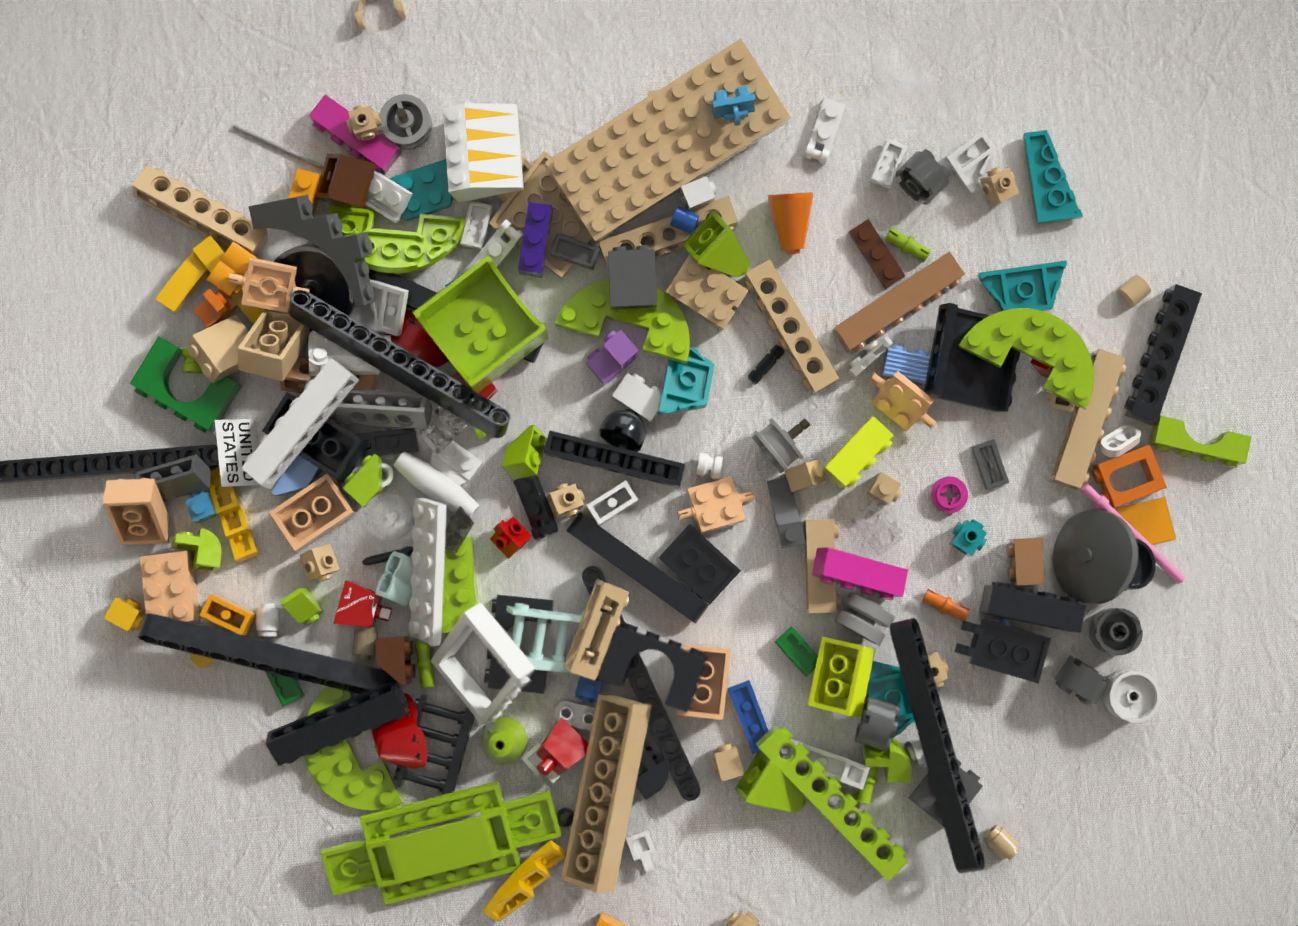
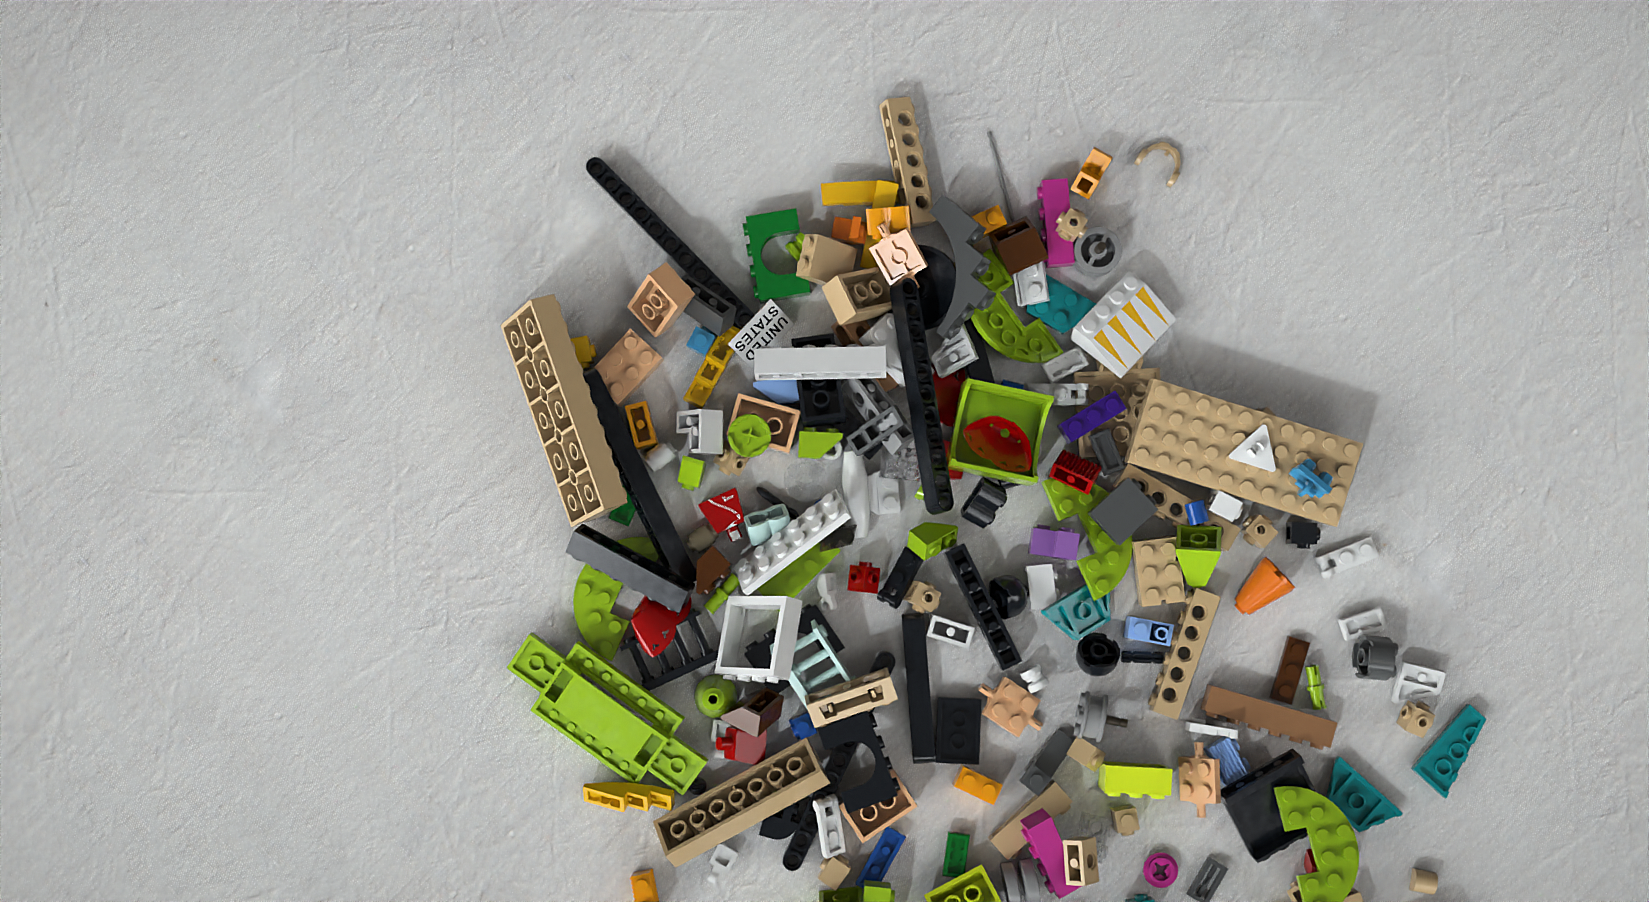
camera: 45 degrees right, 0 degrees up
(157, 669) = (563, 410): none -> tan brick
(205, 547) = (674, 368): lime brick -> none
(274, 566) = (704, 430): none -> white brick
(311, 532) = (749, 435): none -> lime tile
(337, 71) = (1091, 173): none -> light orange brick
(395, 424) = (876, 430): none -> dark grey slope
(490, 337) = (1000, 448): none -> red piece
(494, 573) = (827, 588): none -> white plate
(531, 386) = (983, 503): none -> black brick
(542, 718) = (755, 711): none -> reddish brown slope
(569, 290) = (1075, 471): none -> red brick
(577, 716) = (779, 733): white plate -> none
(673, 129) = (1256, 450): none -> white piece
(687, 735) = (829, 826): none -> white plate
(732, 398) = (1097, 654): none -> black cylinder
(748, 177) = (1265, 530): none -> tan brick
(748, 341) = (1148, 630): none -> light blue slope
(755, 585) = (977, 784): none -> light orange brick
(775, 150) = (1302, 534): none -> black brick
(885, 553) = (1080, 861): none -> tan brick

